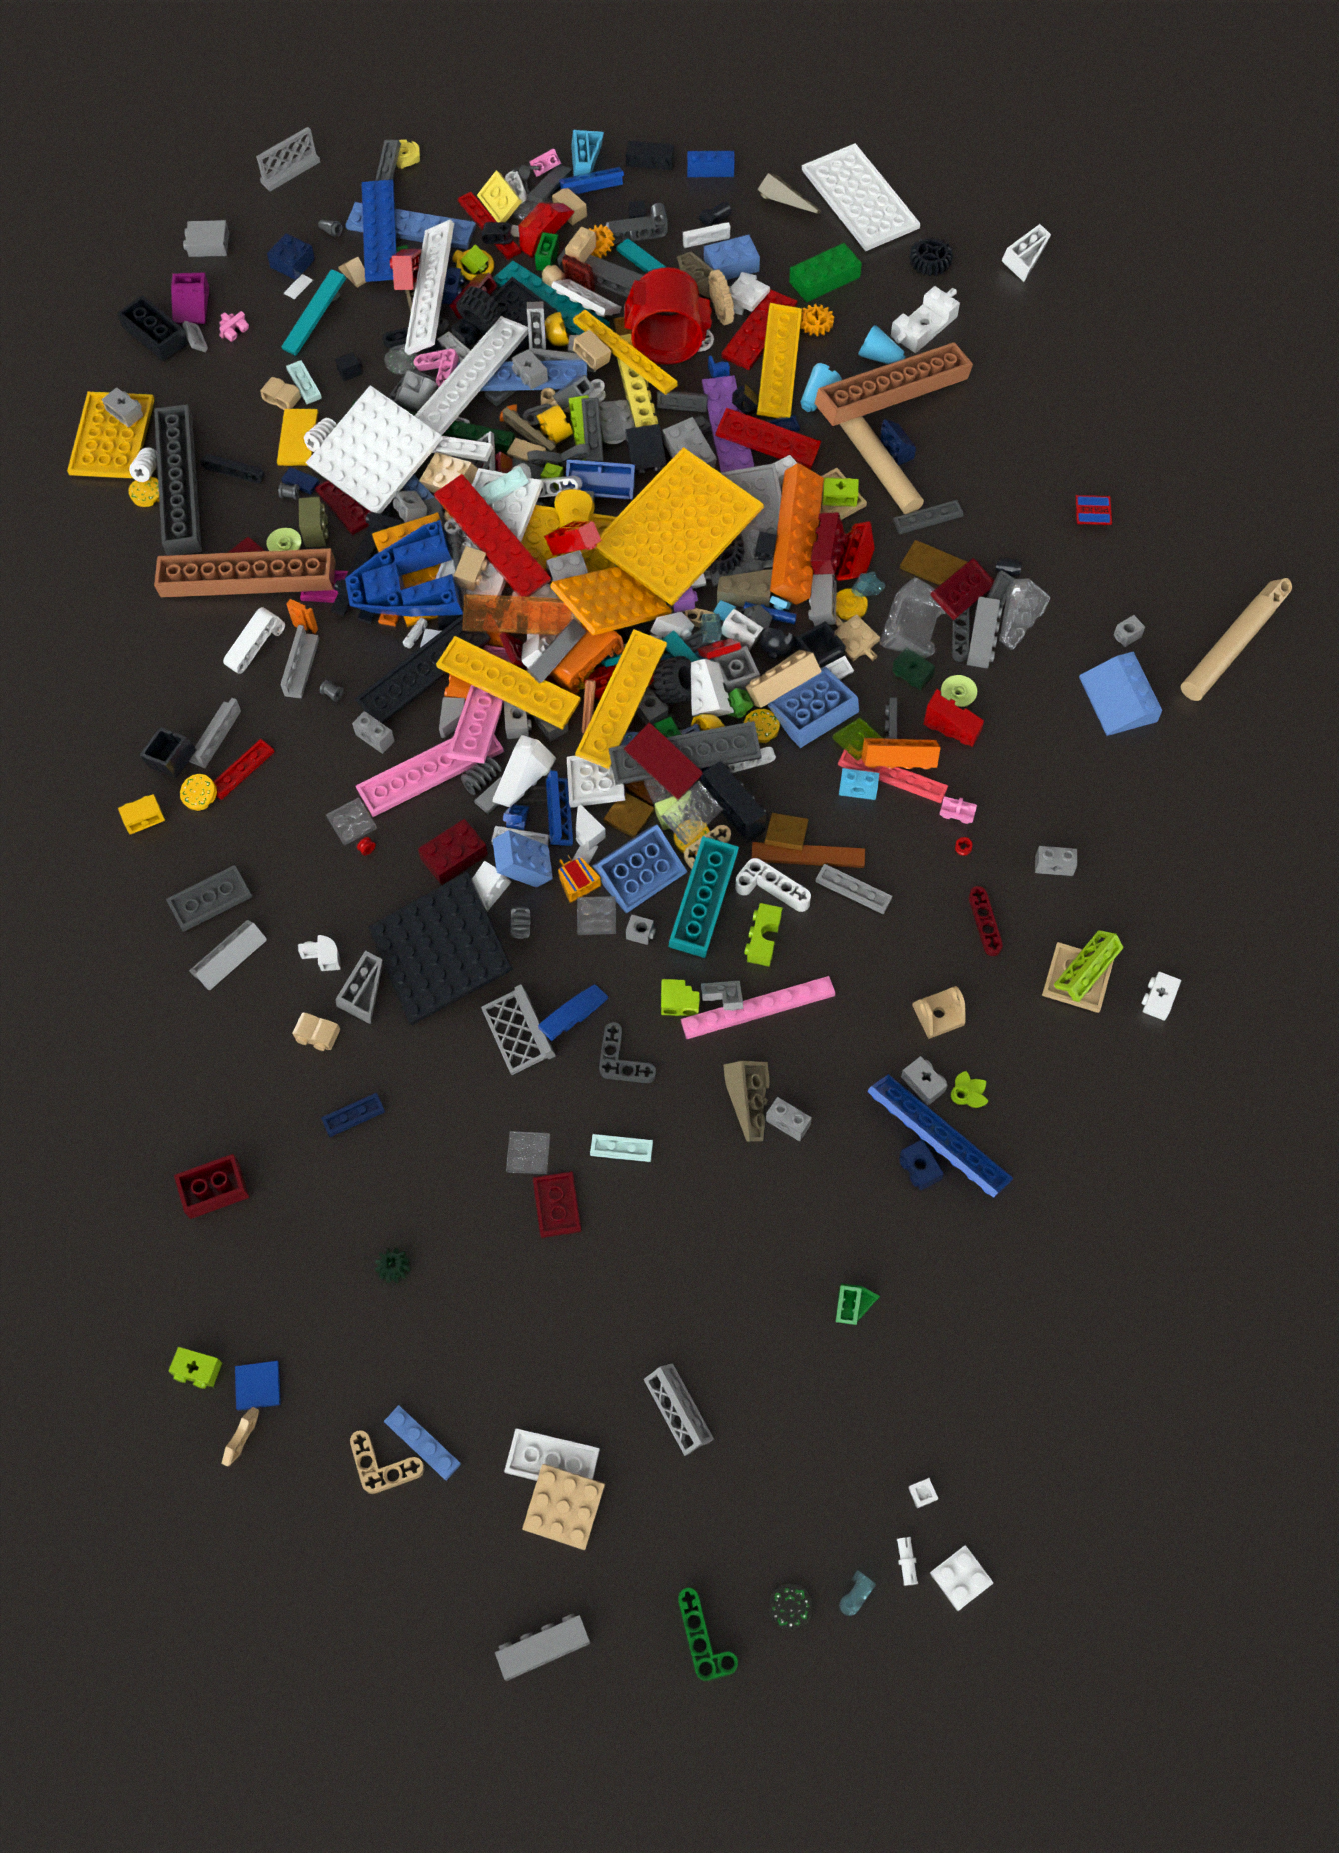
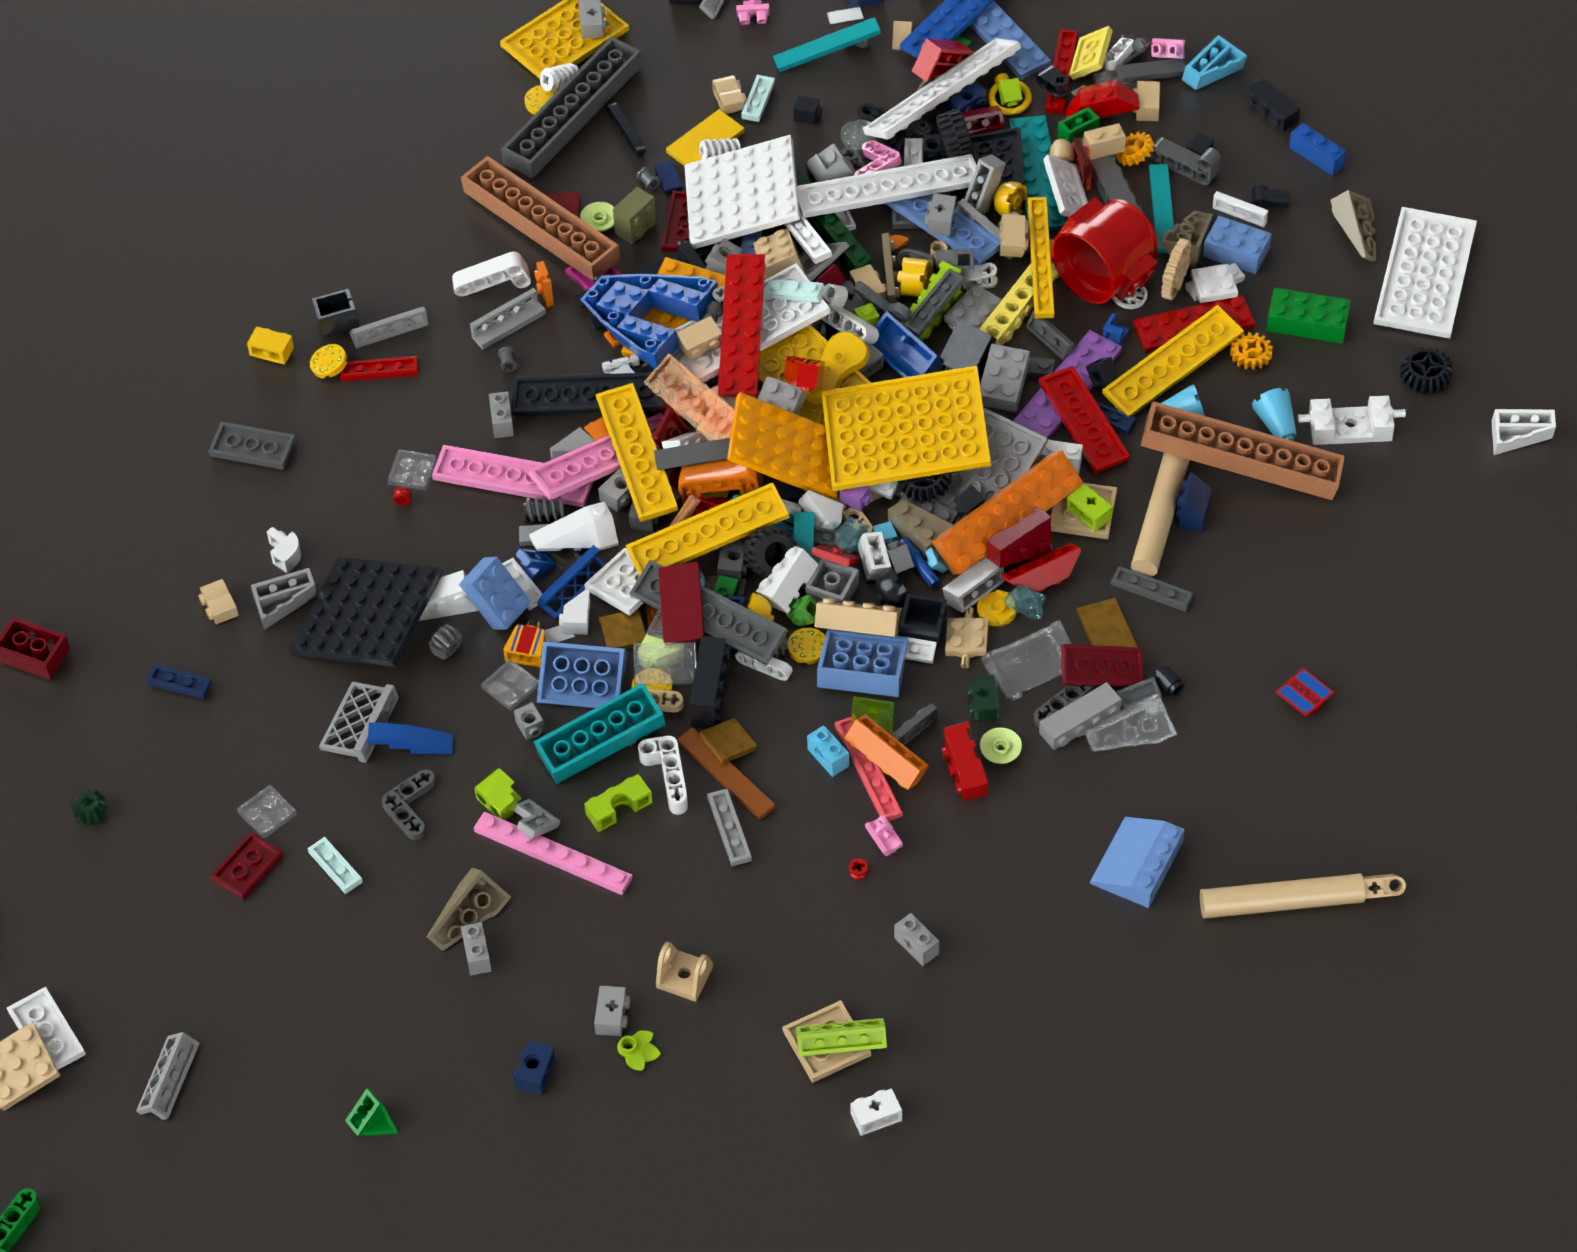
camera: 45 degrees right, 10 degrees down
(228, 954) = (220, 498): light grey panel -> none
(453, 851) = (457, 548): dark red brick -> none
(593, 180) = (1191, 92): blue fence -> none
(940, 1135) = (572, 1057): blue plate -> none
(982, 921) = (803, 937): dark red beam -> none
(1129, 631) = (1213, 807): light grey brick -> none

